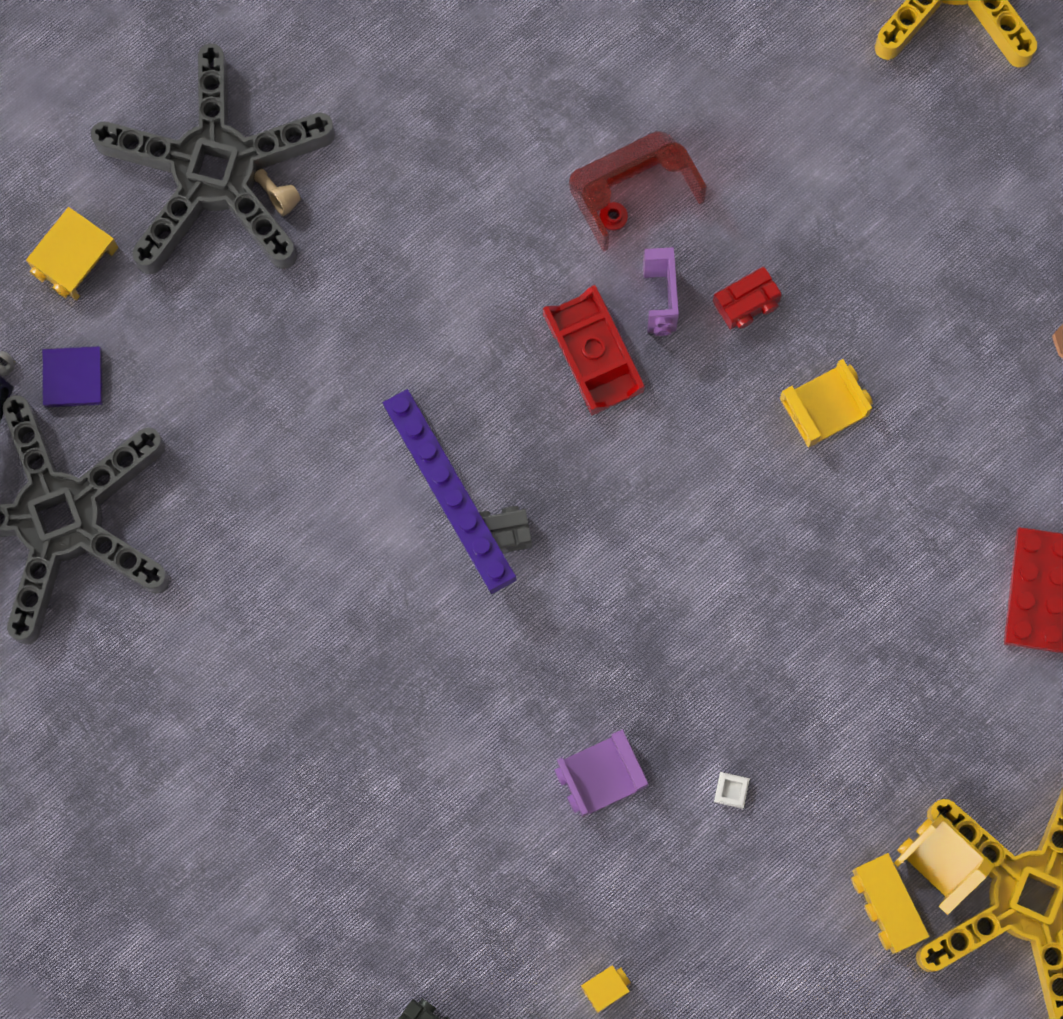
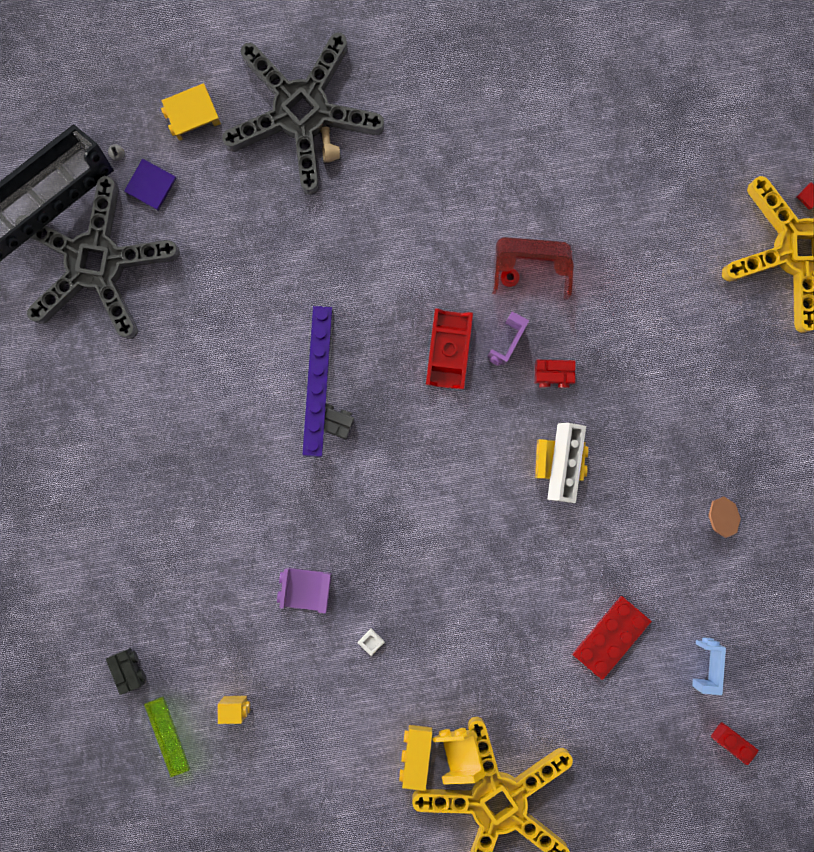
camera: 25 degrees right, 10 degrees up
(836, 399) = (566, 462): none -> white brick

